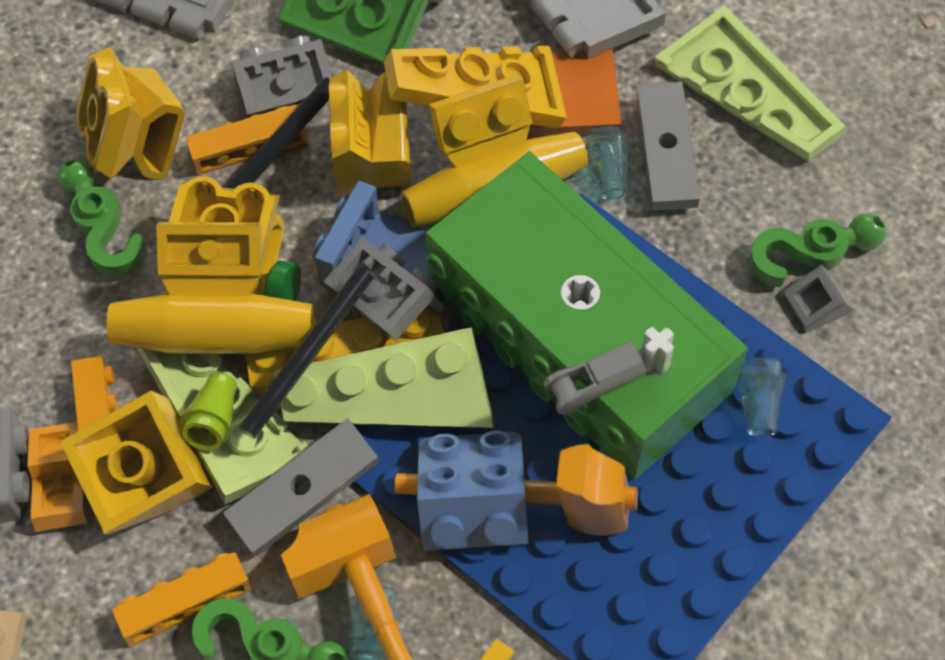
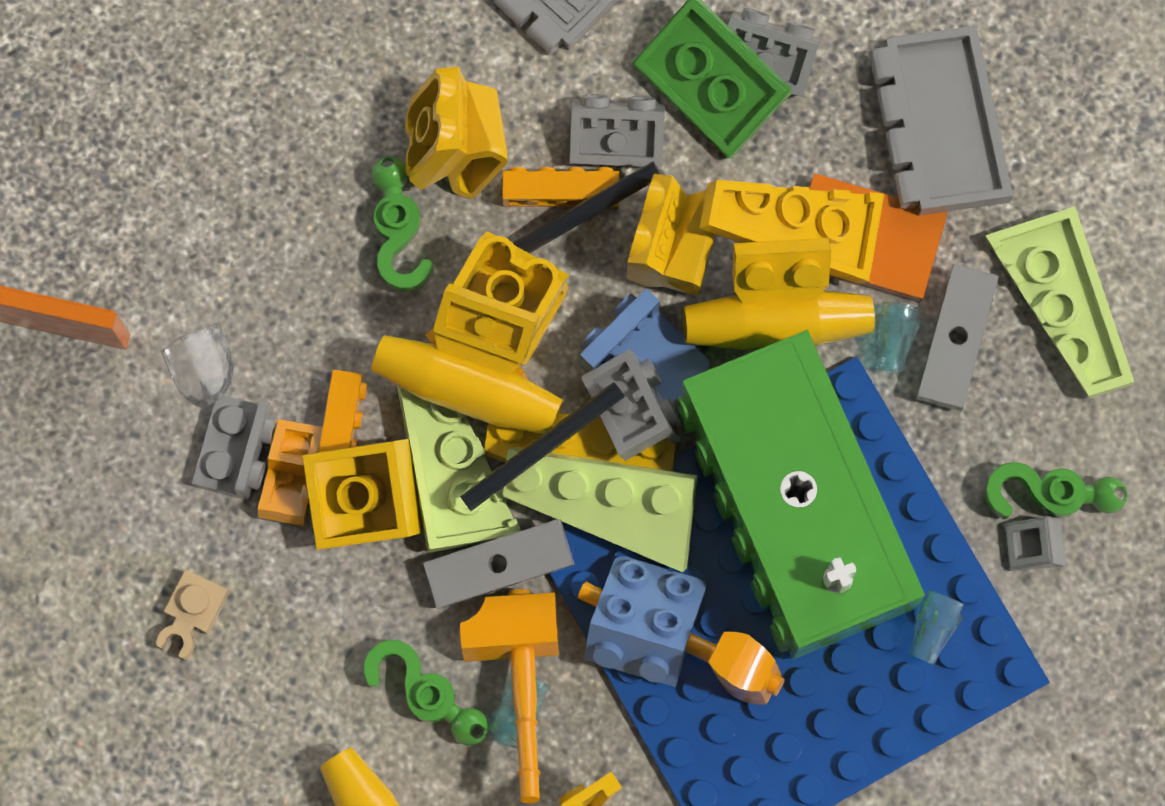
camera: 20 degrees right, 15 degrees up
(180, 599) = (365, 625): light orange piece -> none
(210, 414) = (439, 472): lime cone -> none
(283, 281) = (545, 358): green tile -> none
(602, 373) = (786, 579): light grey bar -> none

